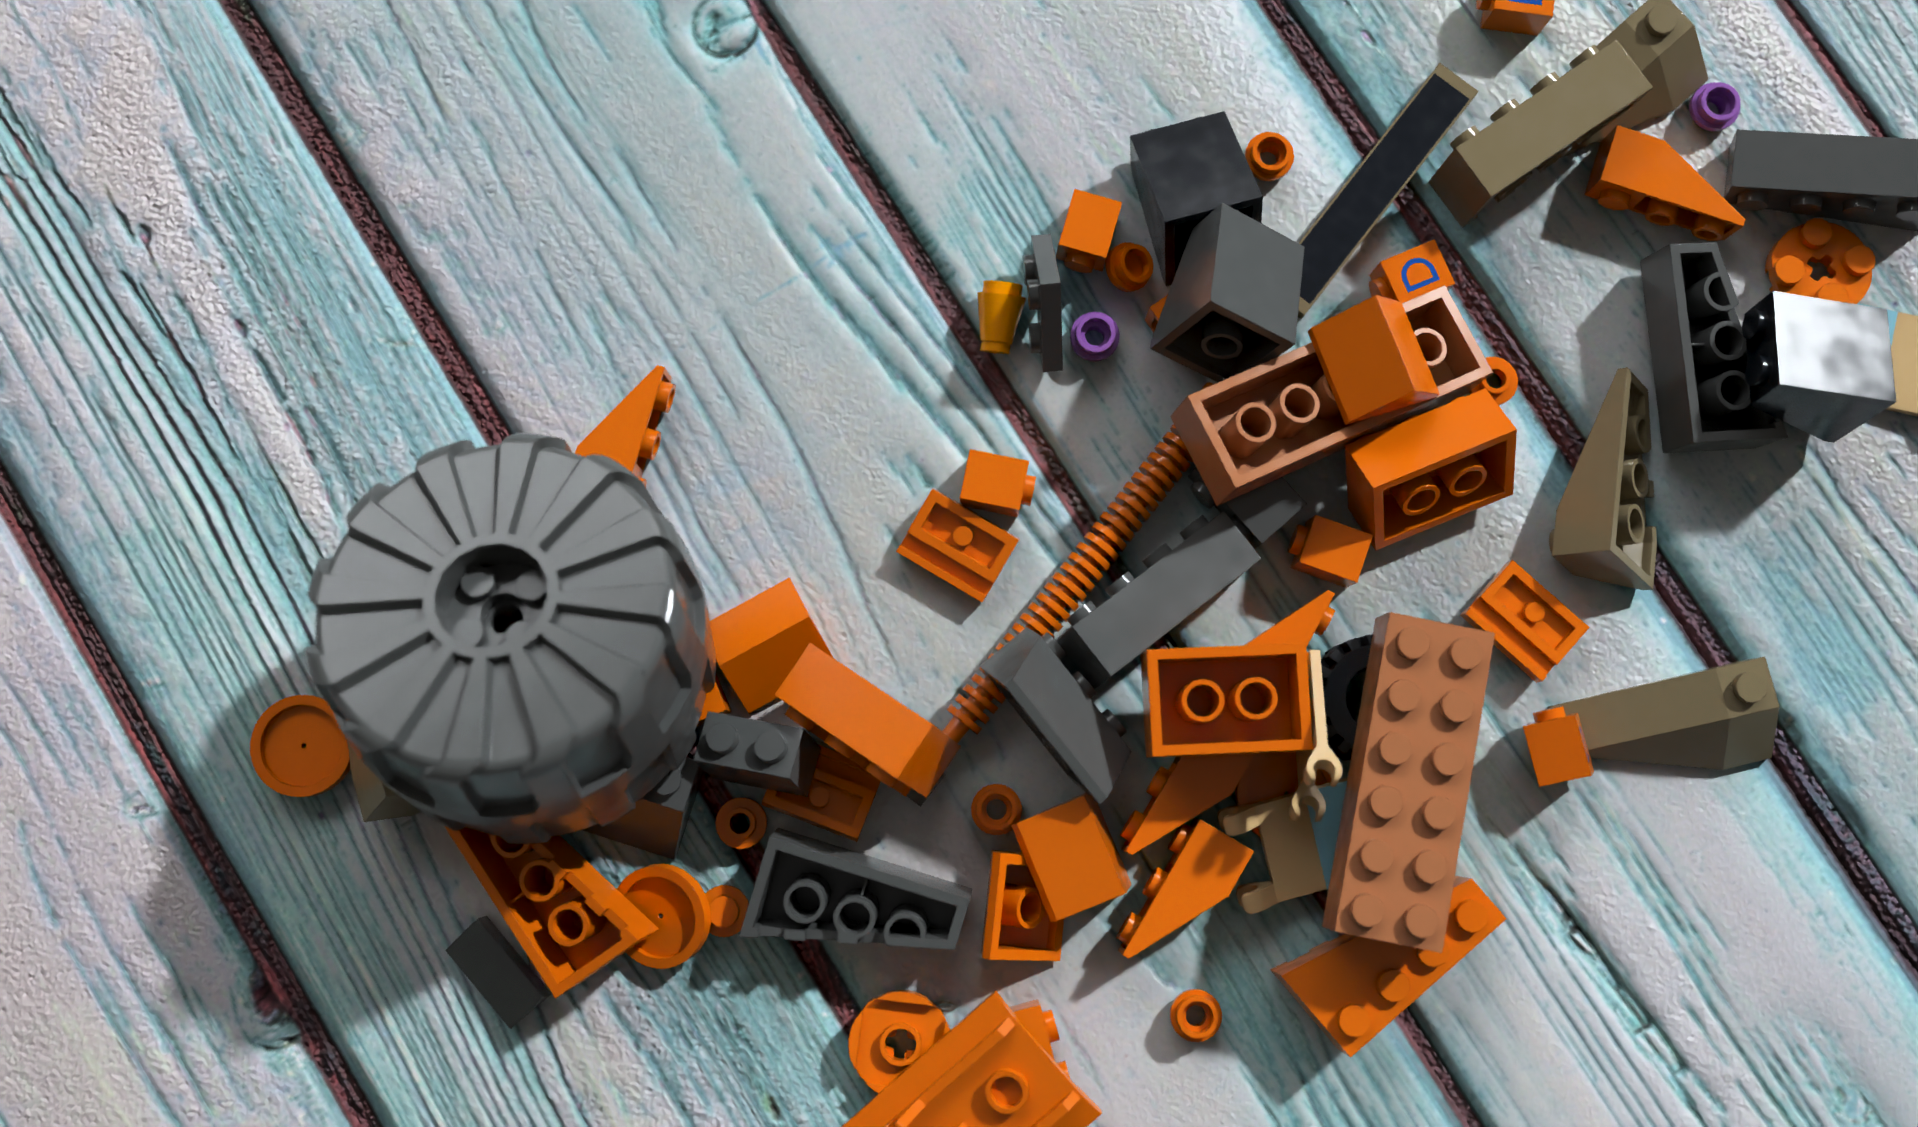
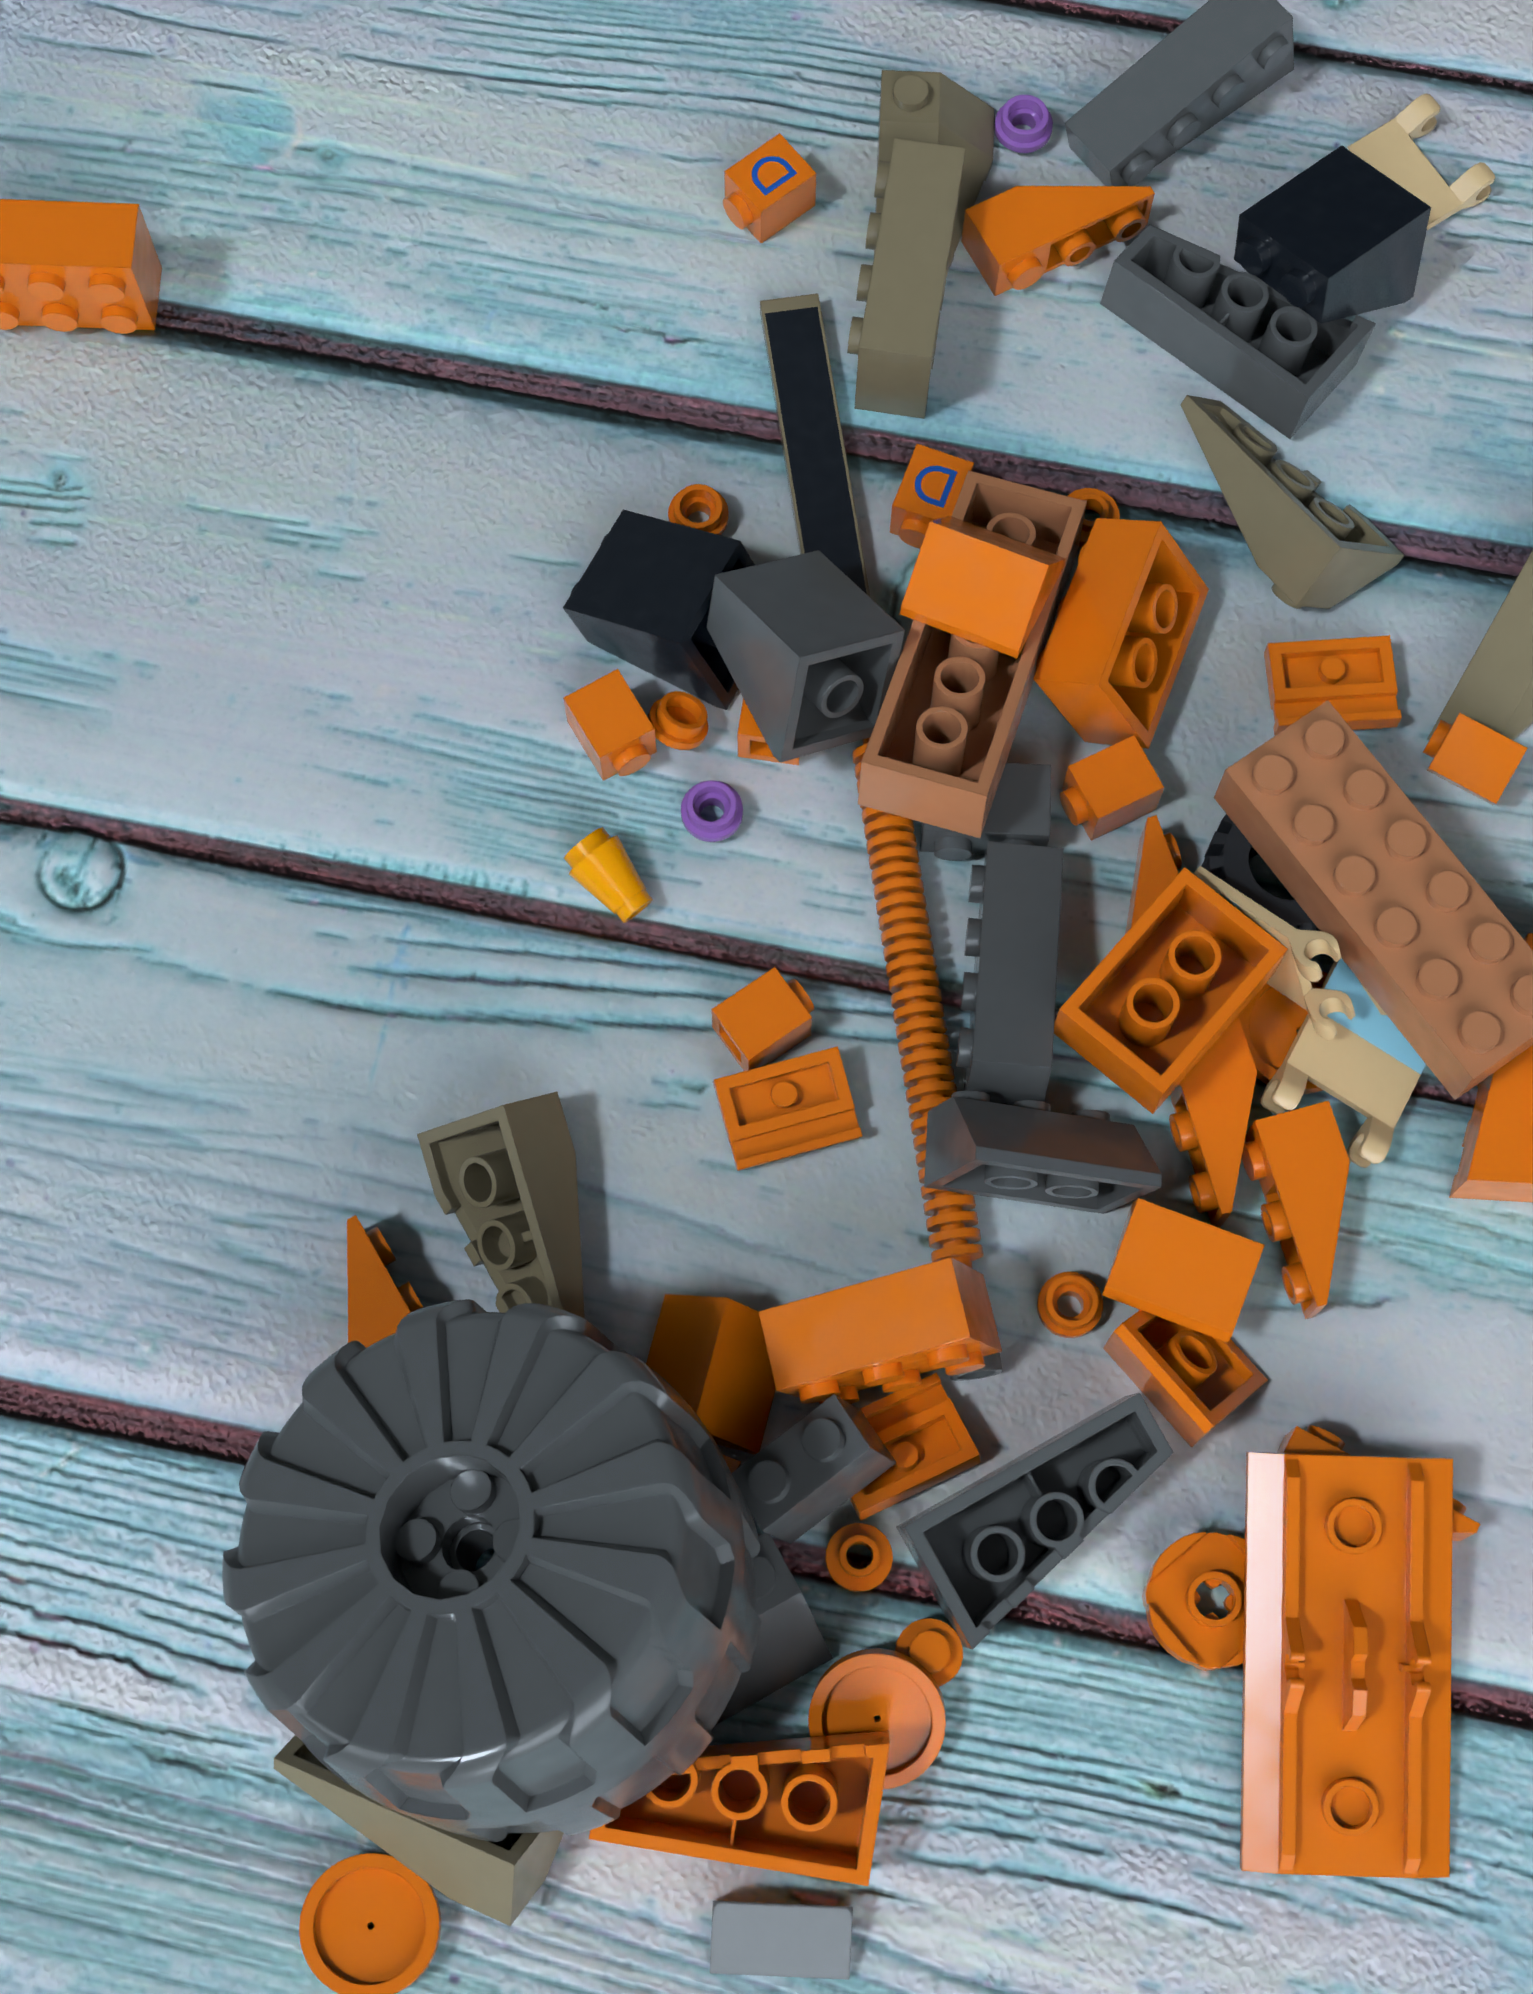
camera: 45 degrees left, 10 degrees down
(765, 443) = (516, 1198): none -> dark tan wedge
(1044, 295) = (641, 811): dark grey plate -> none
(1212, 1015) = (1445, 1287): orange plate -> none
(1824, 242) = (1238, 145): orange plate -> none

